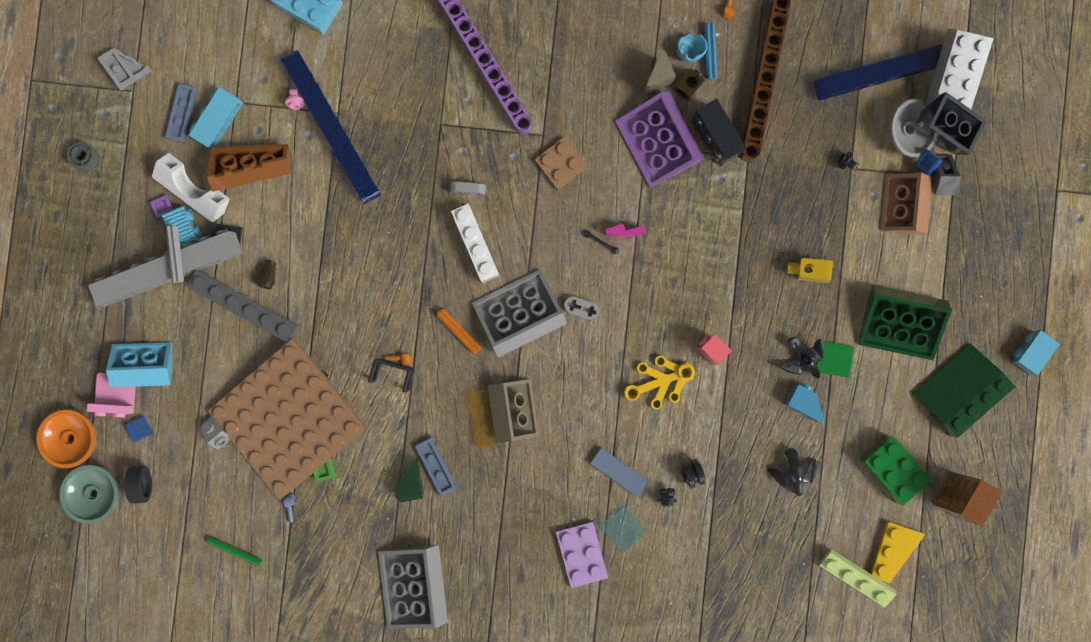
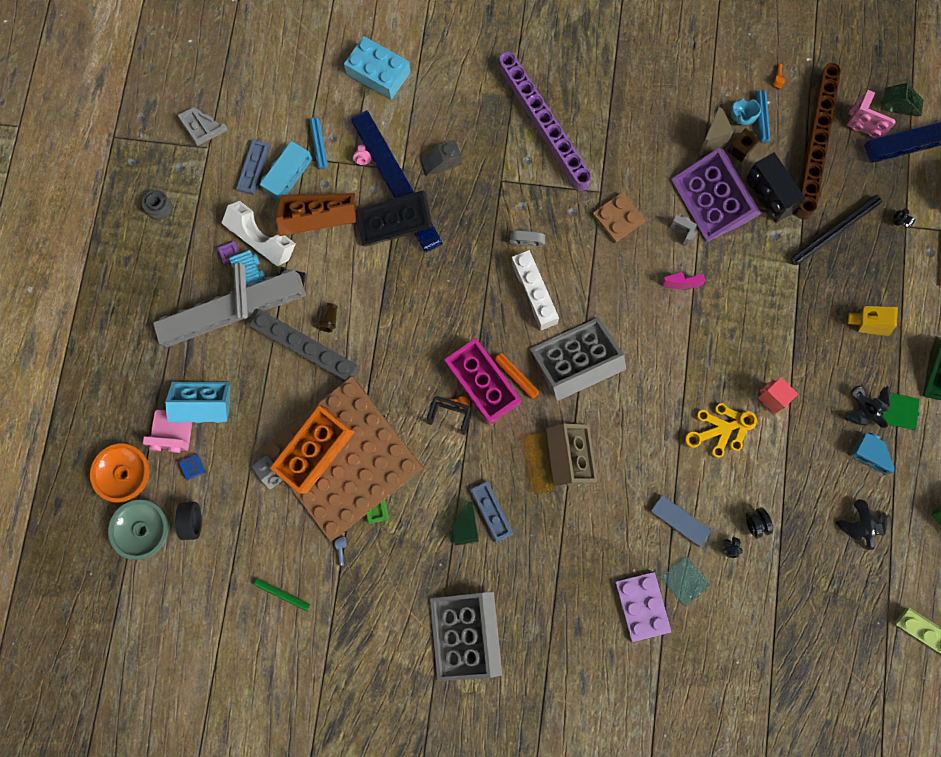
camera: 10 degrees right, 10 degrees down
(248, 85) = (318, 143): none -> dark azure axle
(256, 414) = (312, 449): none -> orange brick
(329, 171) = (394, 218): none -> black plate
(378, 102) = (442, 158): none -> flat silver slope
(423, 339) = (482, 381): none -> dark pink brick
(579, 312) = (642, 351): light grey beam -> none
(587, 234) = (645, 284): black hinge -> none
(625, 171) = (685, 226): none -> light grey bracket
(780, 174) = (835, 230): none -> black axle
(812, 57) = (867, 120): none -> bright pink bracket
(854, 33) = (903, 100): none -> clear green slope

